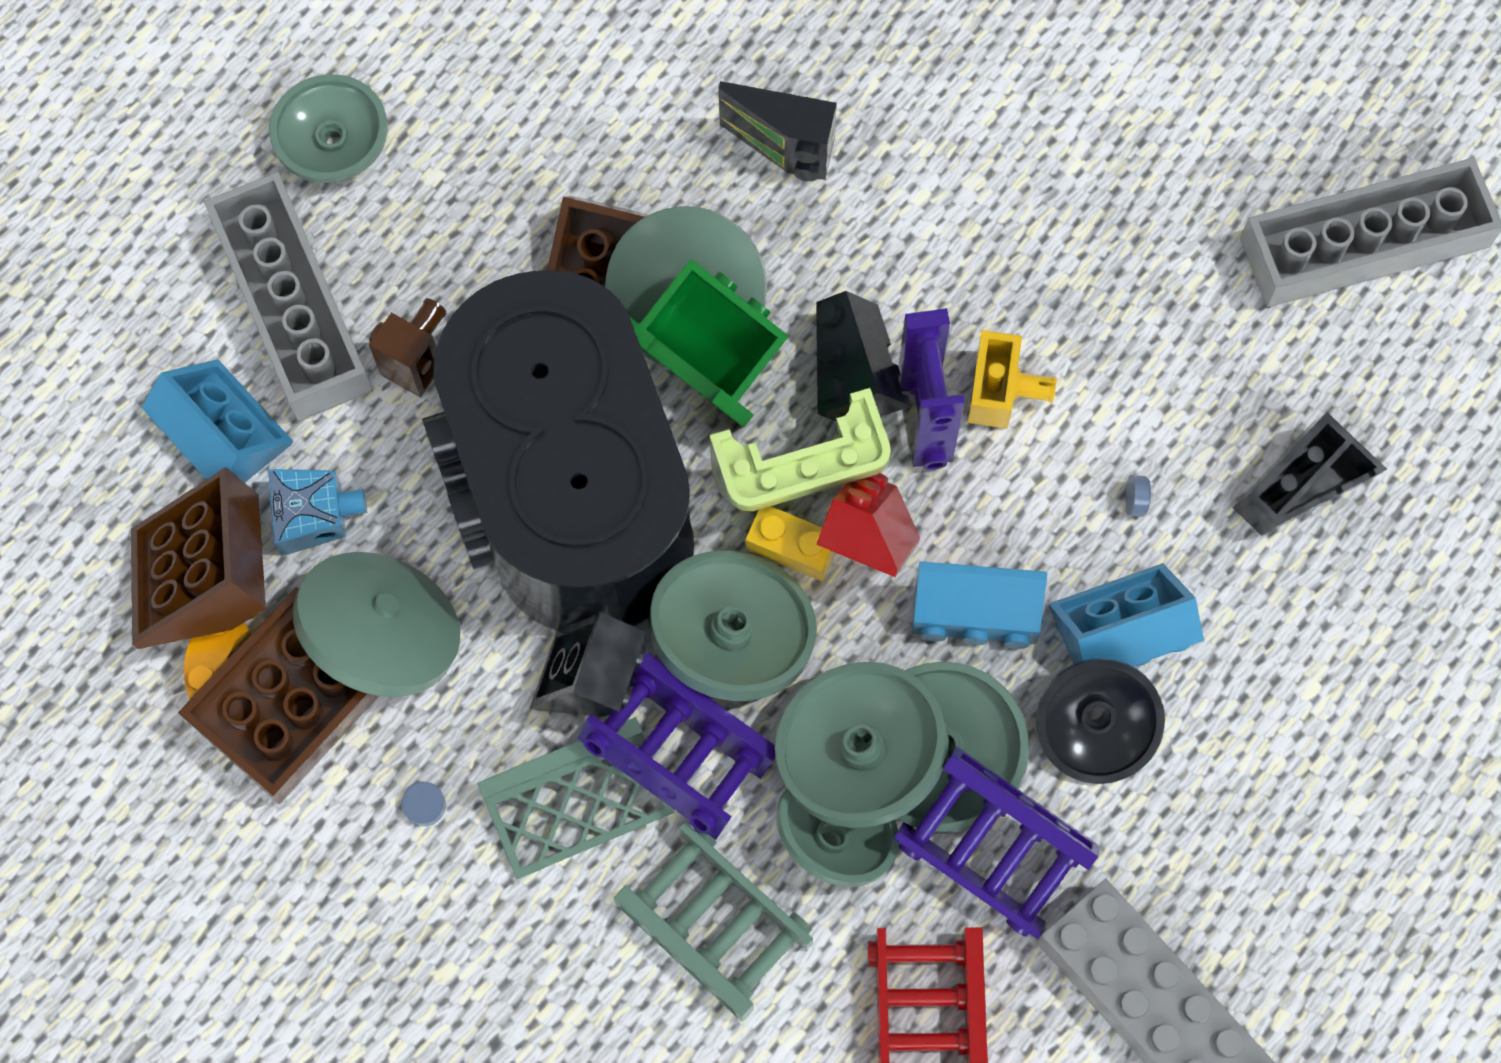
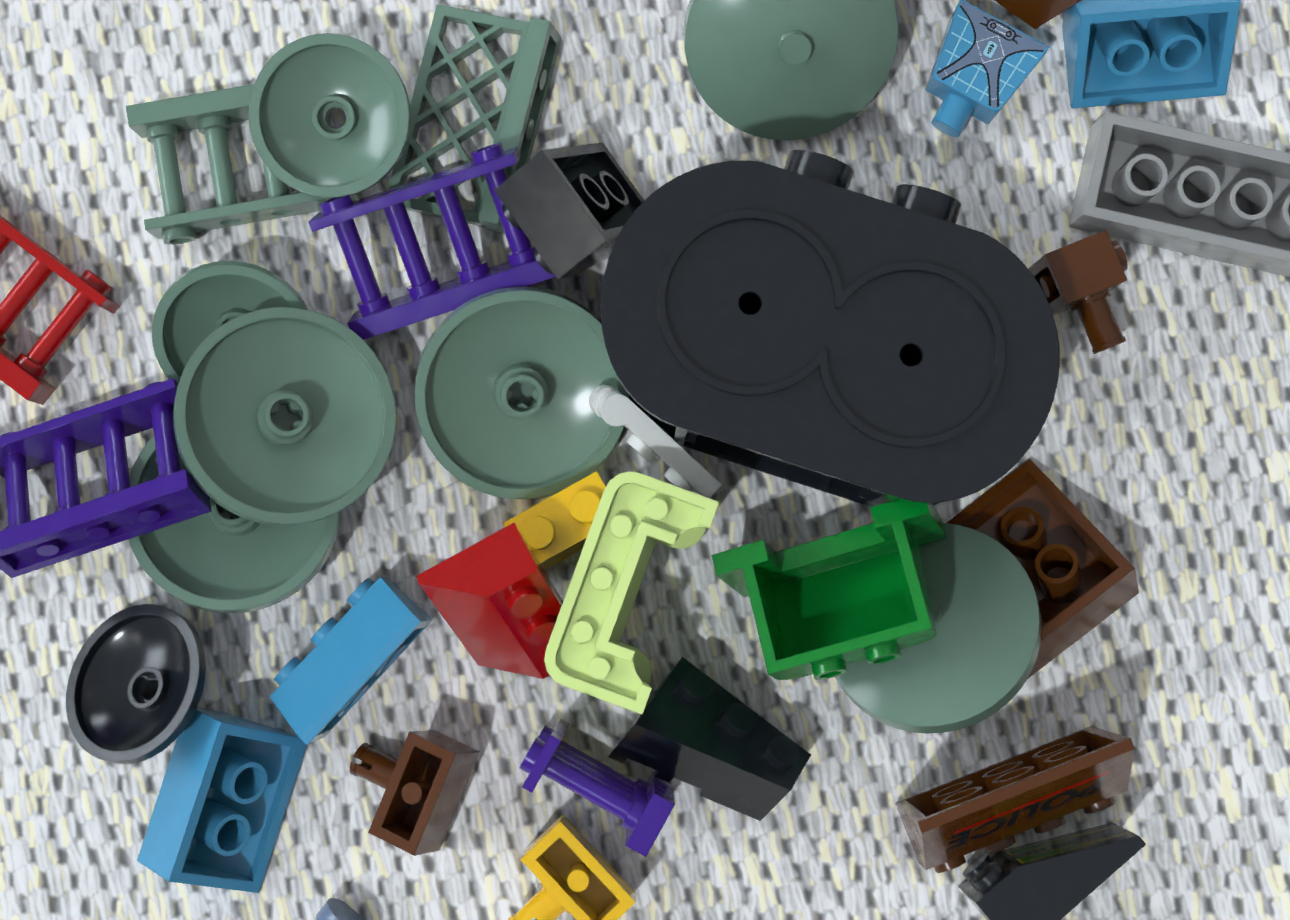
camera: 125 degrees right, 15 degrees up
(654, 838) = (294, 107): none -> sand green dish
(701, 525) = (652, 441): none -> white plate
(746, 179) = (1017, 796): none -> reddish brown slope
(1020, 508) = (419, 786): none -> reddish brown brick

